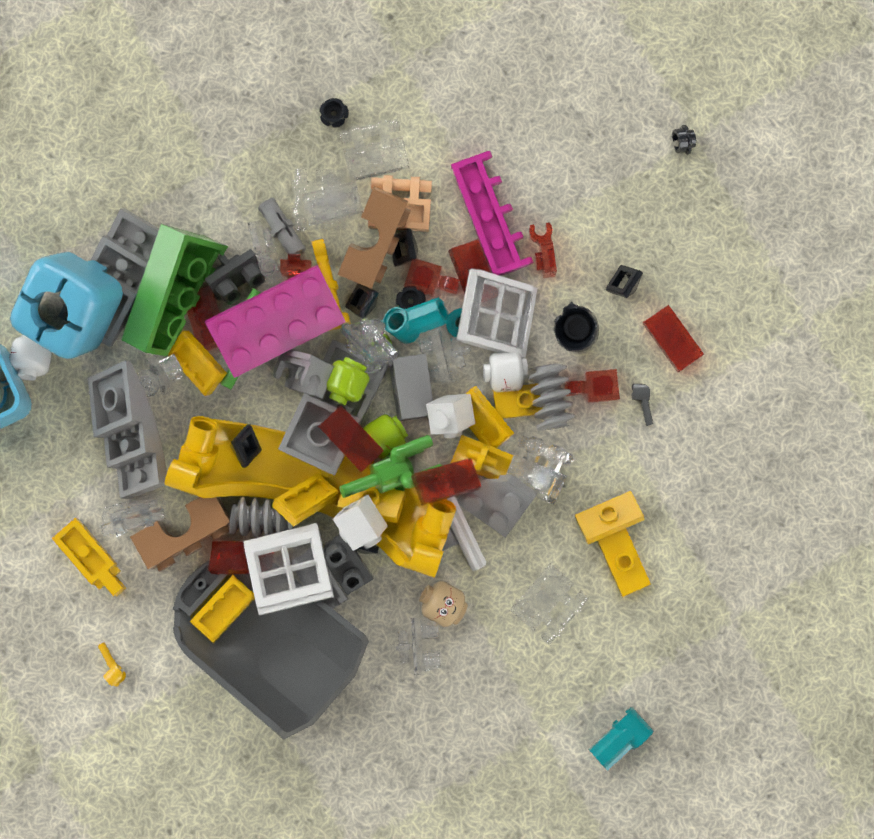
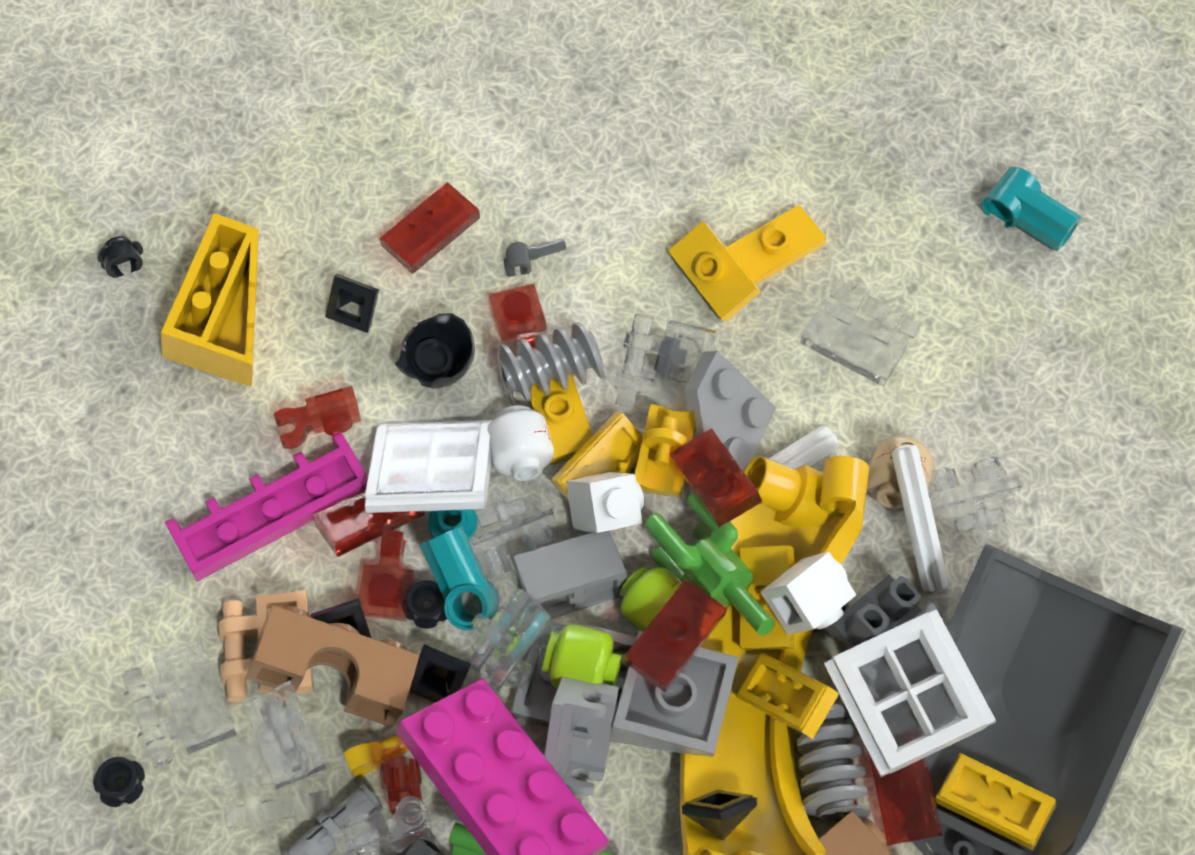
camera: 100 degrees left, 20 degrees down
(406, 606) = (919, 518): none -> white axle
(633, 196) = (216, 305): none -> yellow wedge

